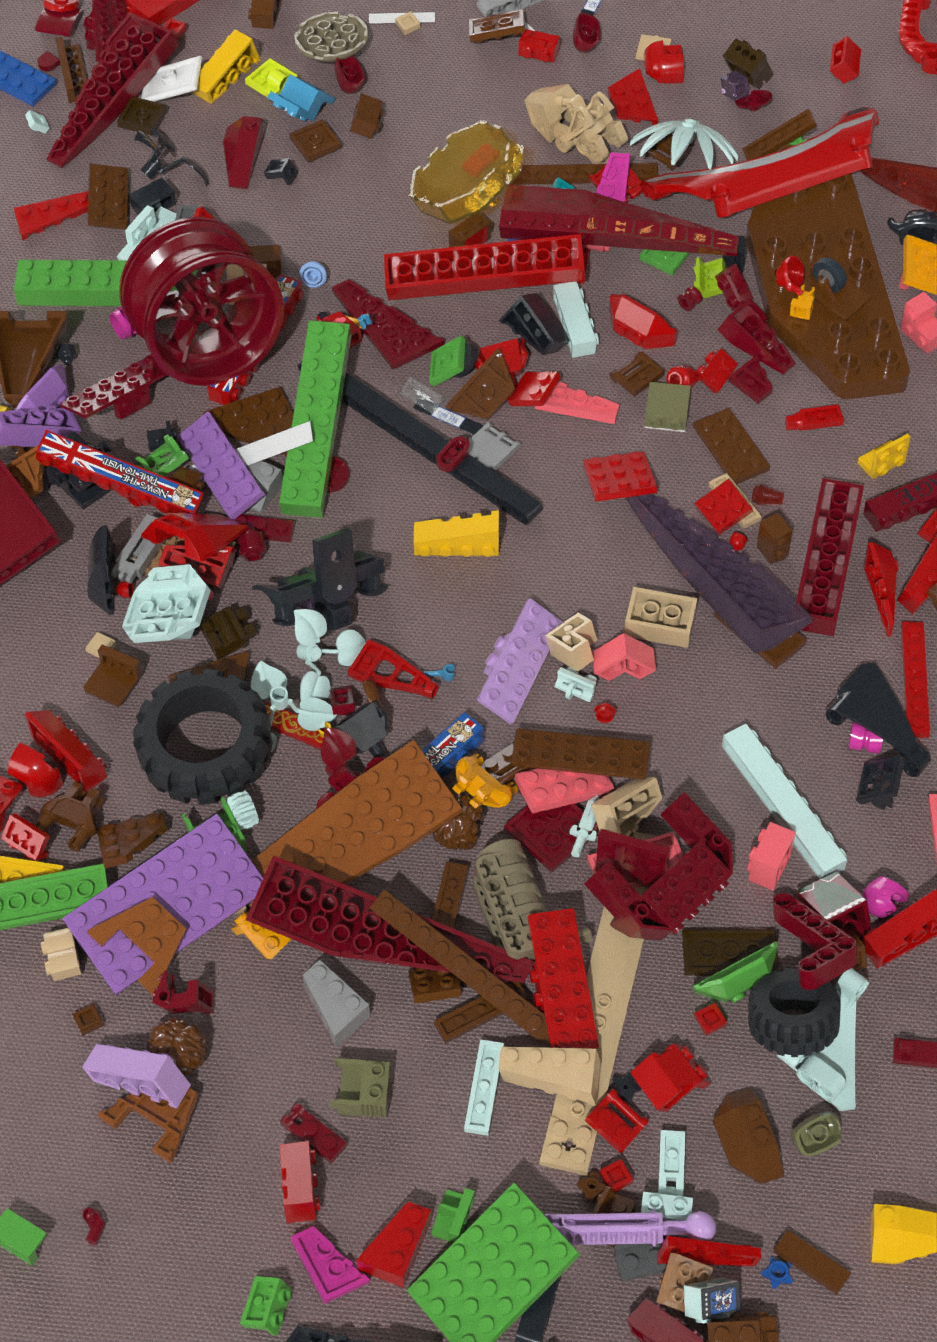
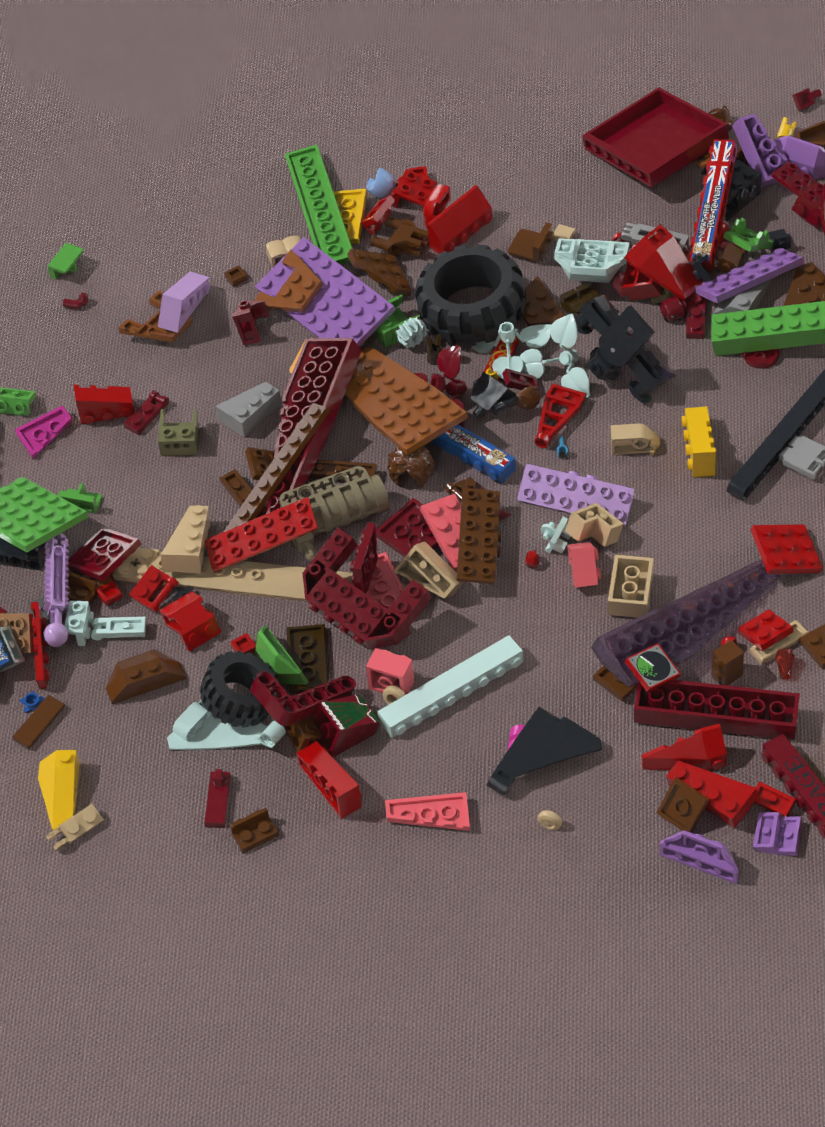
camera: 90 degrees right, 5 degrees down
(101, 556) = (629, 209): black wedge -> none
(181, 1042) = (206, 320): reddish brown hair -> none
(206, 503) = (699, 272): none -> black bracket
(273, 444) = (767, 299): white sticker -> none
(274, 786) = (433, 349): none -> dark brown hinge
(397, 1245) = (54, 466): red wedge -> none
(445, 601) = (633, 439): none -> tan piece
(450, 457) = (784, 422): dark red plate -> none
(481, 784) = (442, 469): light orange connector -> none
(483, 1088) = (178, 506): light aqua plate -> none
(560, 1175) = (103, 553): none -> dark red plate
(586, 824) = (403, 546): light aqua sword -> none
(792, 595) = (652, 667): none -> tile
(796, 858) = (392, 690): none -> tan piece
(817, 1133) = (141, 717): olive piece -> none
(881, 894) = (358, 756): dark pink helmet -> none
(892, 770) = (475, 752): black piece -> none
(915, 678) = (594, 785): red plate -> none

